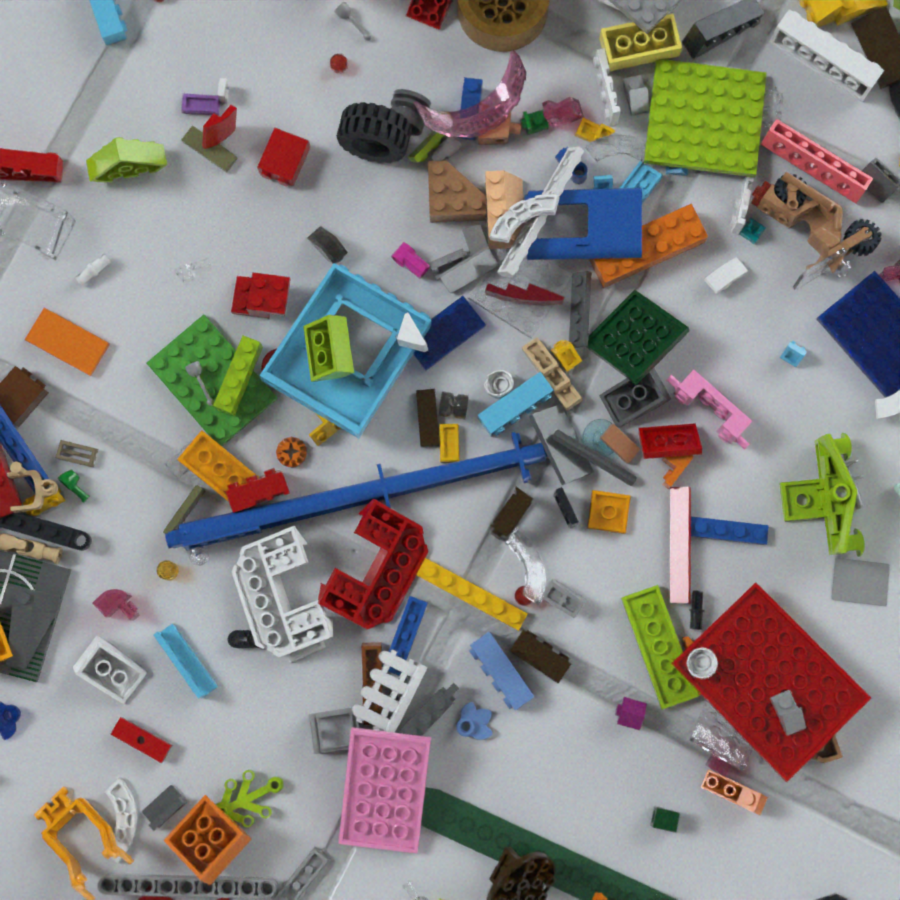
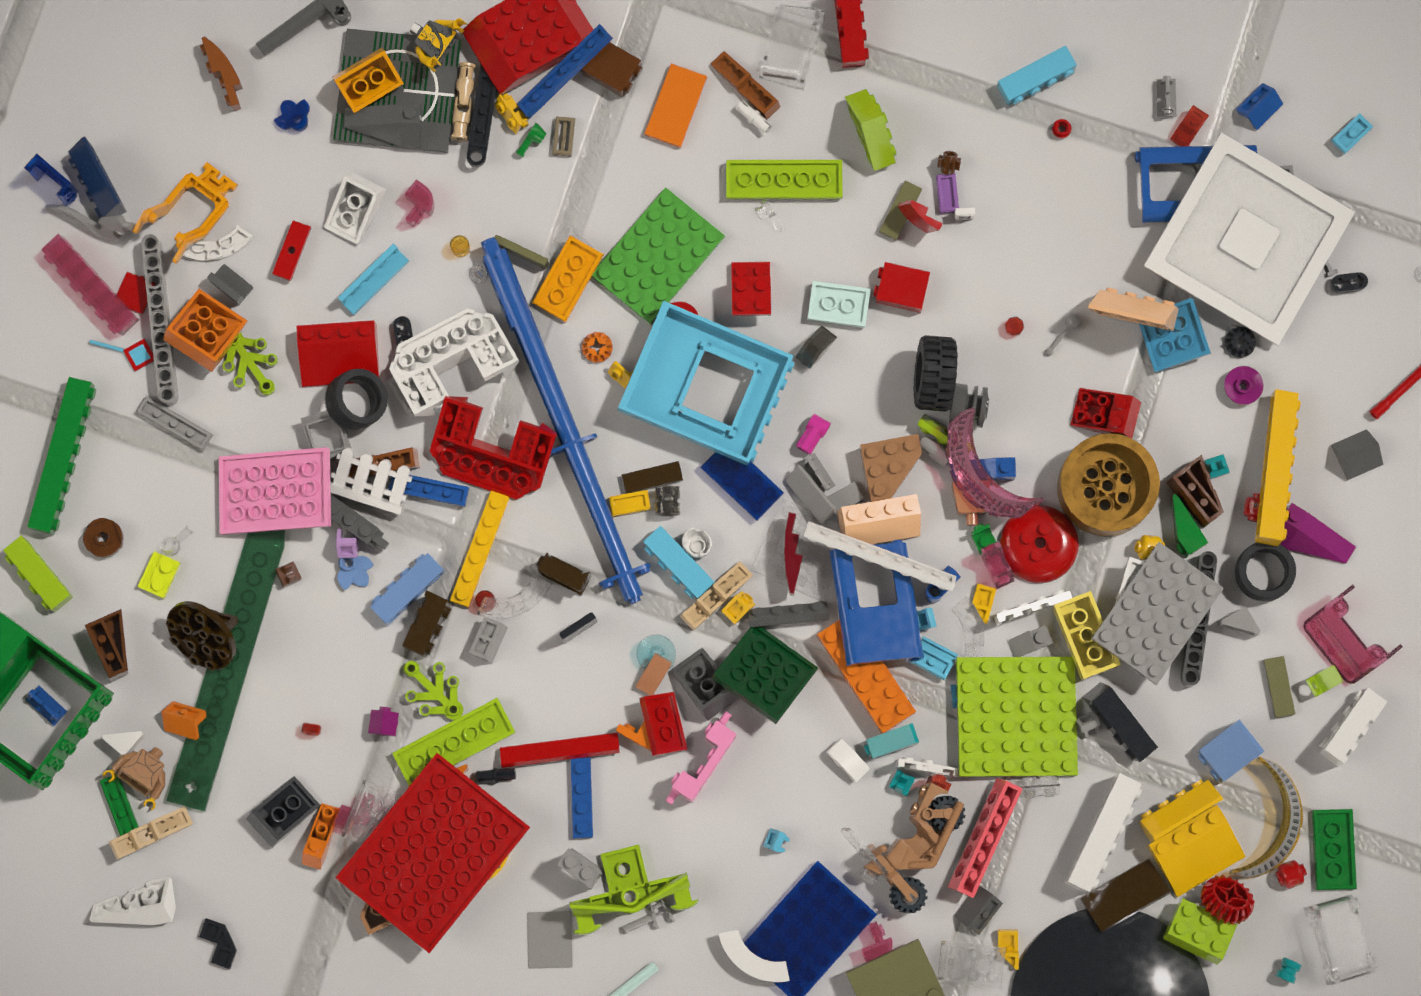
camera: 80 degrees right, 0 degrees up
(40, 487) = (521, 108): tan piece -> none
(60, 273) = (746, 85): none -> dark orange slope
(159, 250) = (784, 179): none -> lime plate
(172, 96) = (949, 162): none -> reddish brown gear
(194, 370) = (662, 237): light grey hinge -> none
(238, 375) = (663, 280): lime brick -> none
(254, 707) = (334, 349): none -> red slope
(256, 490) = (551, 318): red wedge -> none
(289, 218) = (838, 304): none -> light aqua plate
(297, 675) = (375, 390): none -> black tyre
(328, 348) = (700, 364): lime slope -> none
(410, 336) = (727, 443): white slope -> none
(450, 725) = (346, 546): none -> lavender panel
(468, 789) = (288, 574): none -> reddish brown tile
(521, 212) = (871, 534): white tile -> none
(565, 71) = (1036, 563): none -> red brick
(565, 462) = (643, 615): tile -> none
(594, 457) = (634, 650): dark grey axle -> none
(607, 658) = (435, 693): none -> lime plant
(608, 512) = (583, 673): light orange tile -> none
(627, 787) = (311, 729): none -> clear red tile
(665, 819) = (284, 769): dark green panel -> none
(702, 663) = (439, 779): white hair -> none
(706, 827) = (282, 811): none -> black slope
(715, 224) = (891, 741): none -> teal slope
(719, 55) = (1087, 722): none -> light grey tile
(788, 712) = (402, 870): light grey slope -> none
(800, 539) = (580, 867): none -> light grey window

